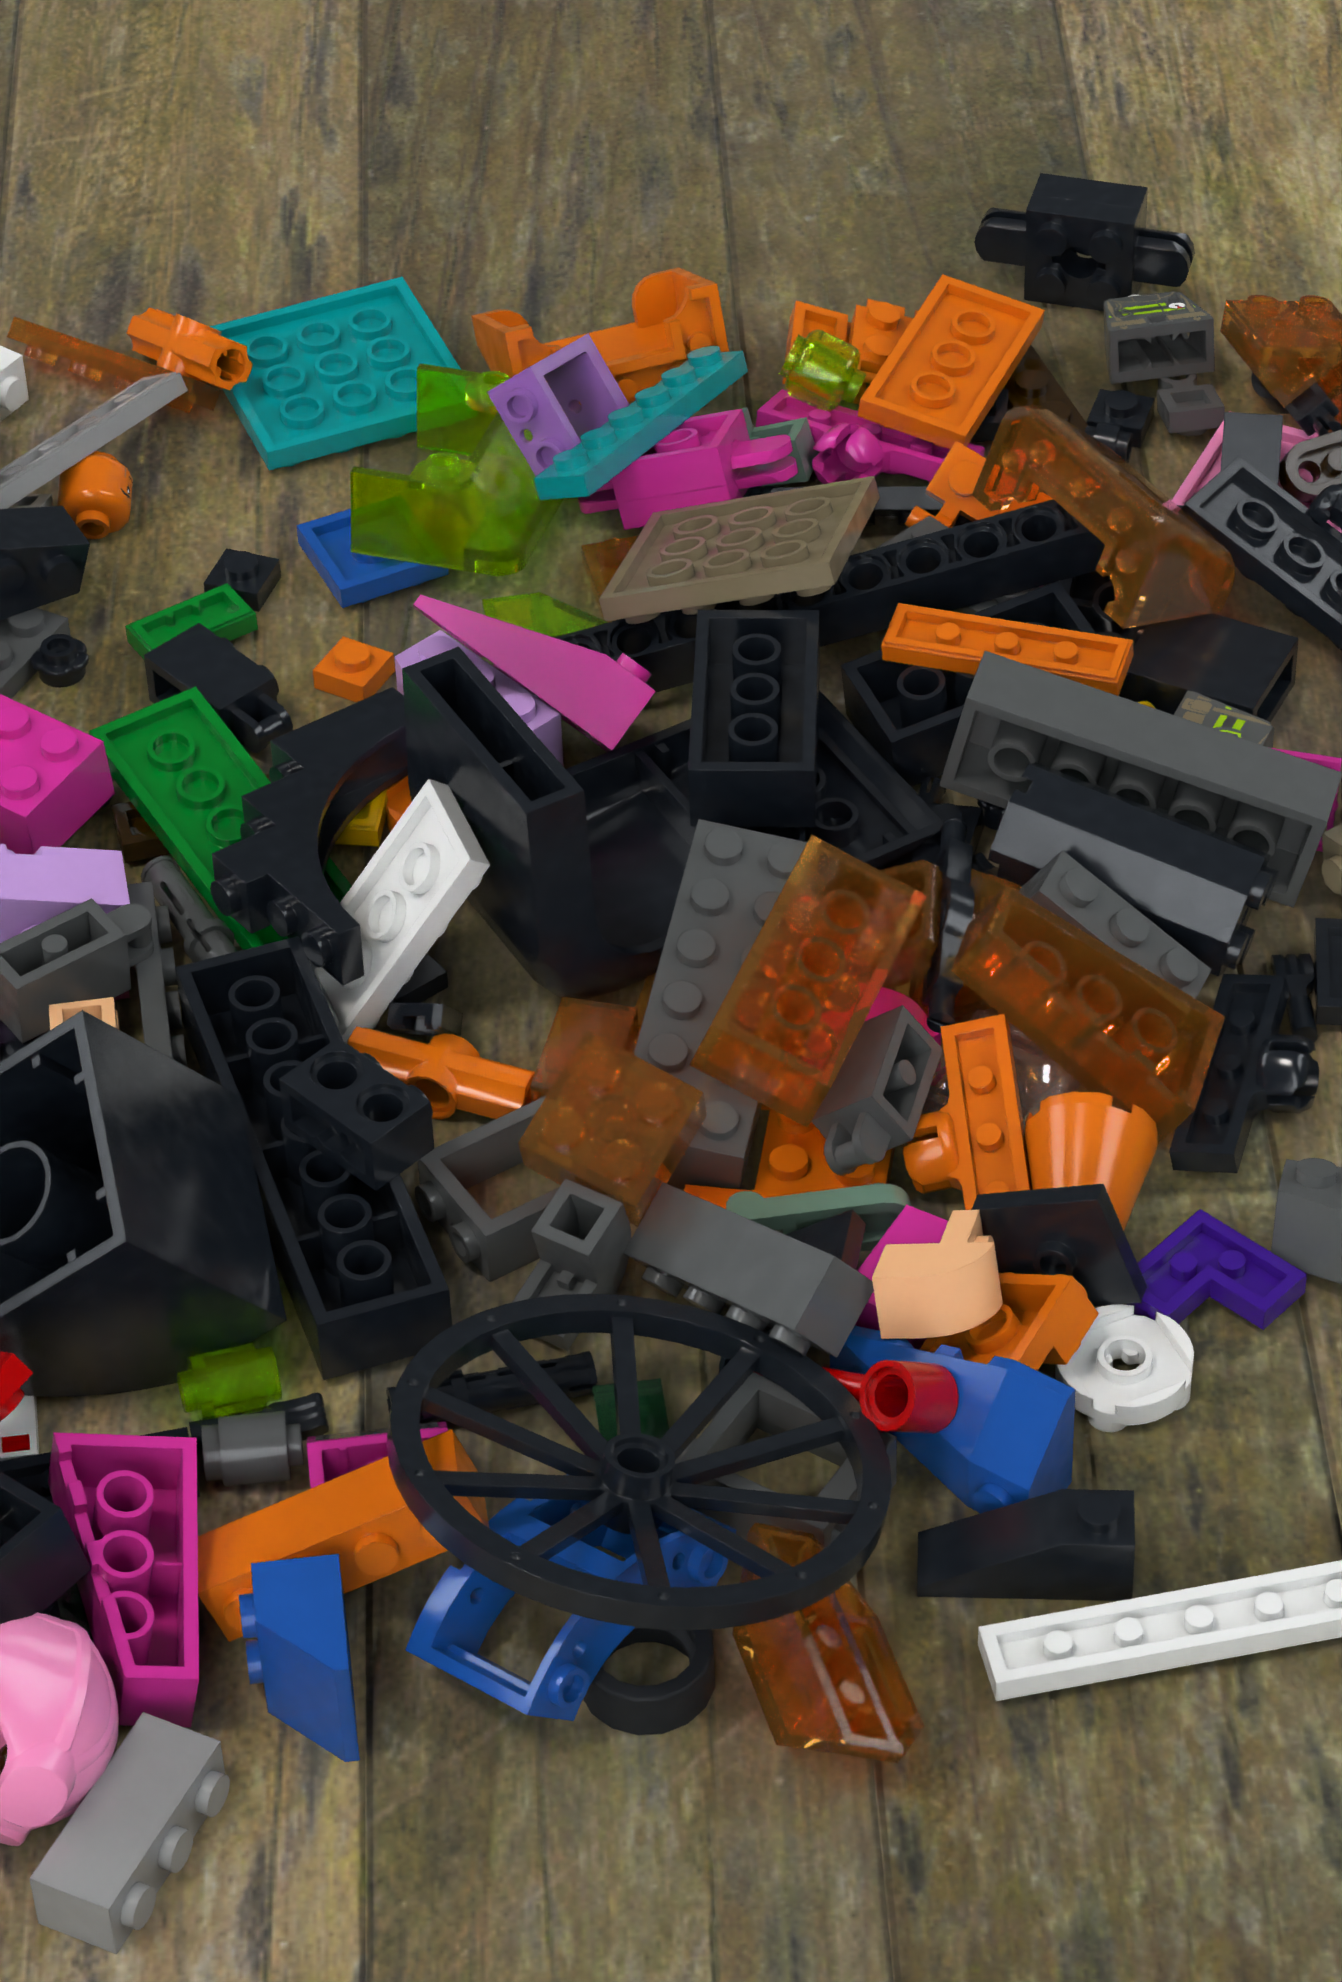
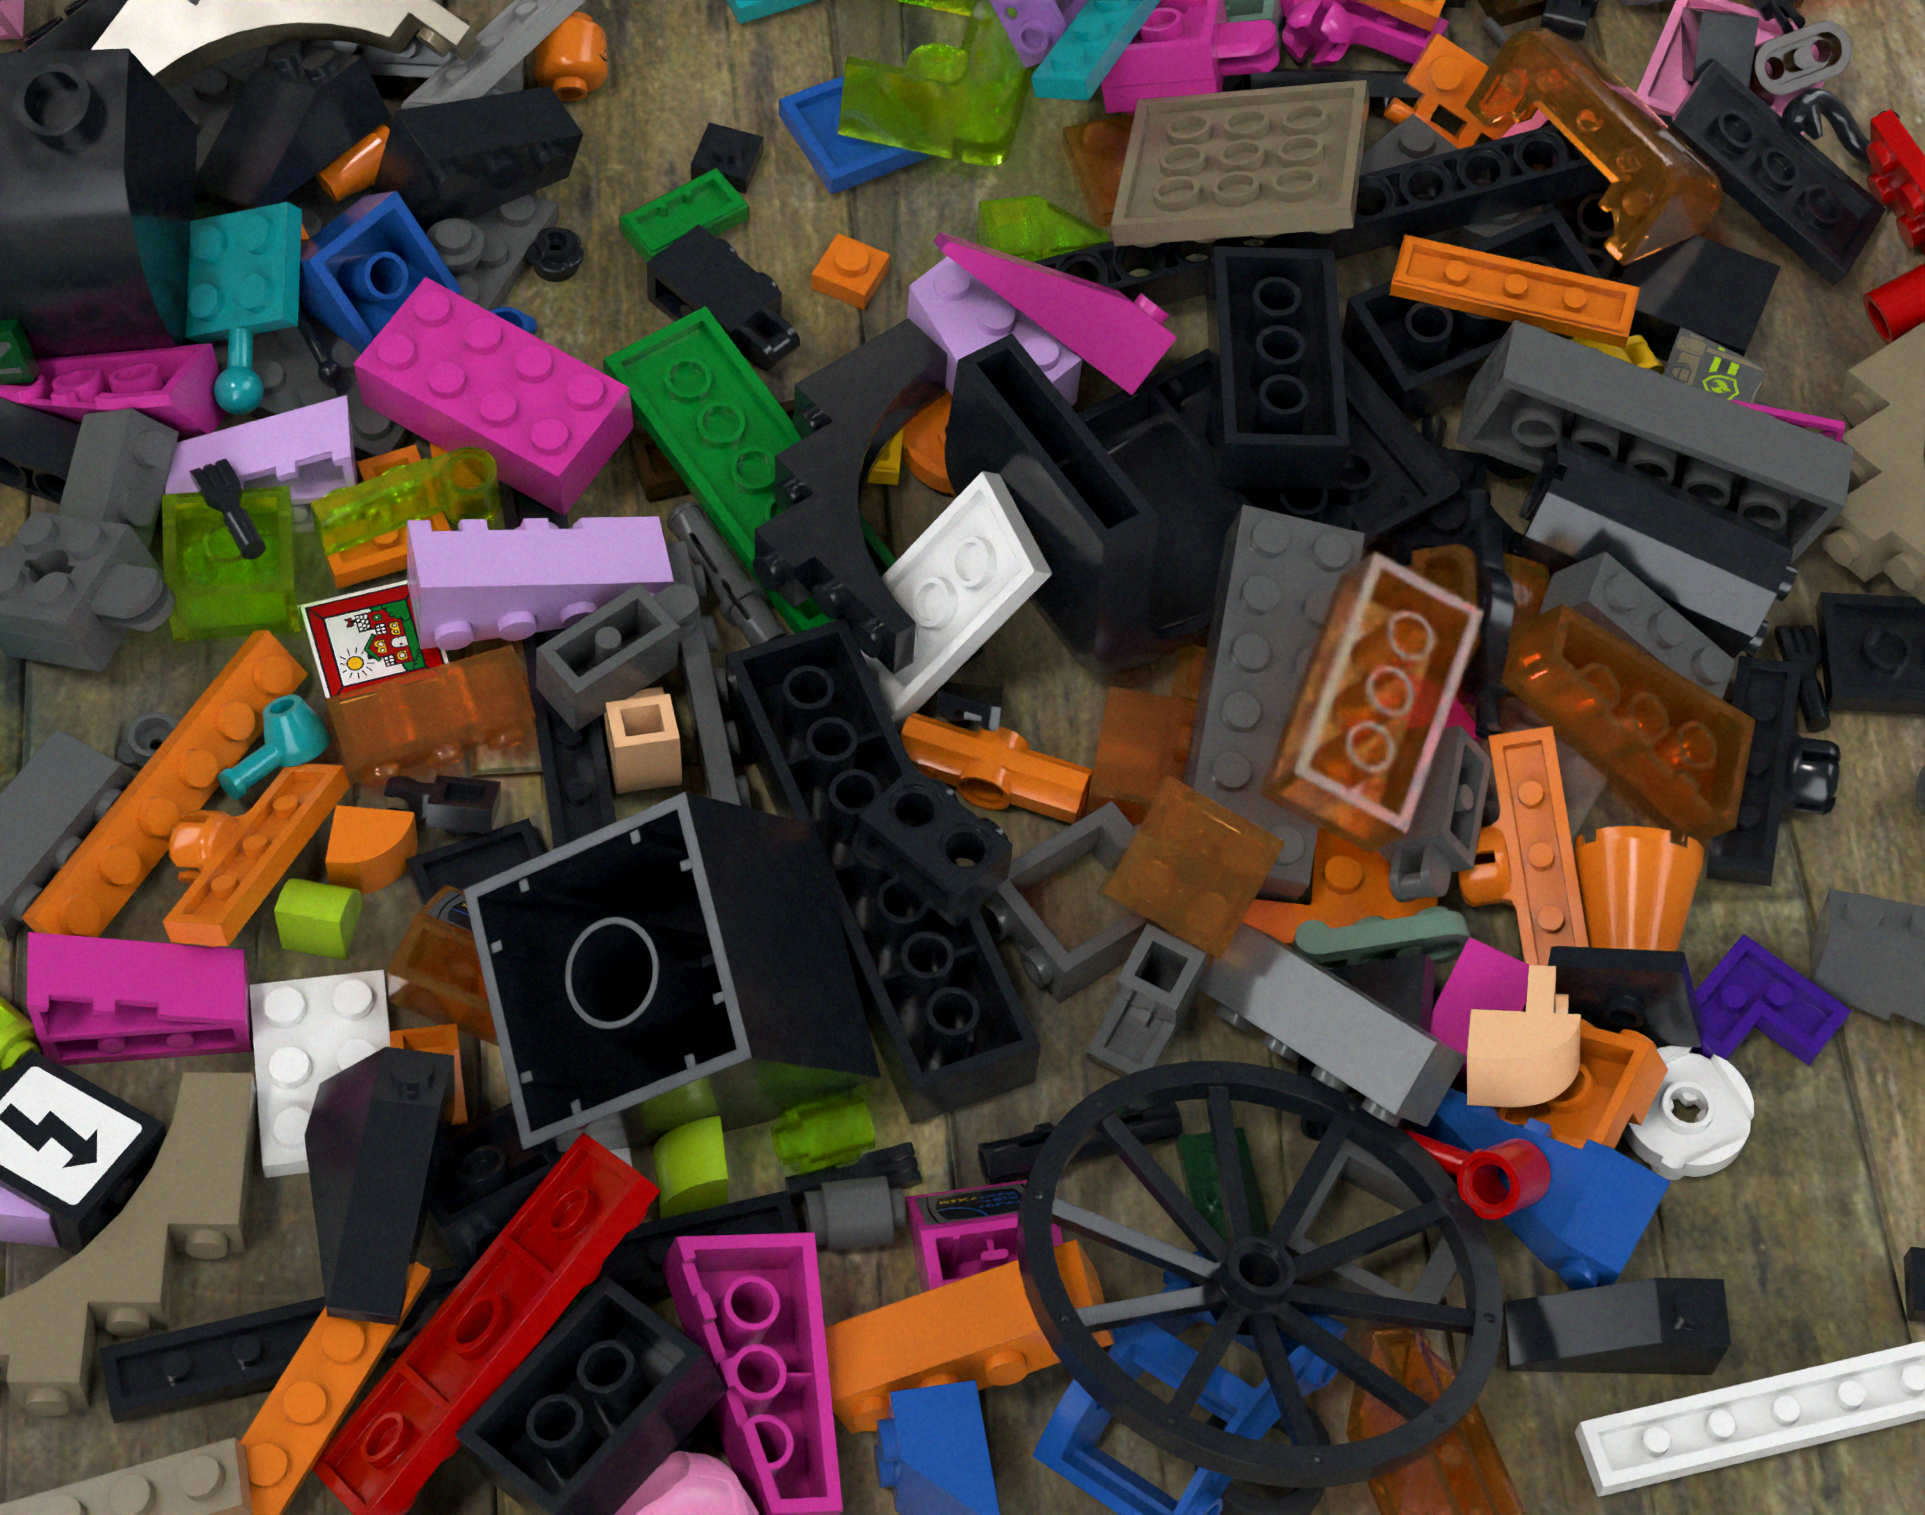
camera: 10 degrees left, 15 degrees up
(95, 1398) = (691, 1168): none -> lime brick

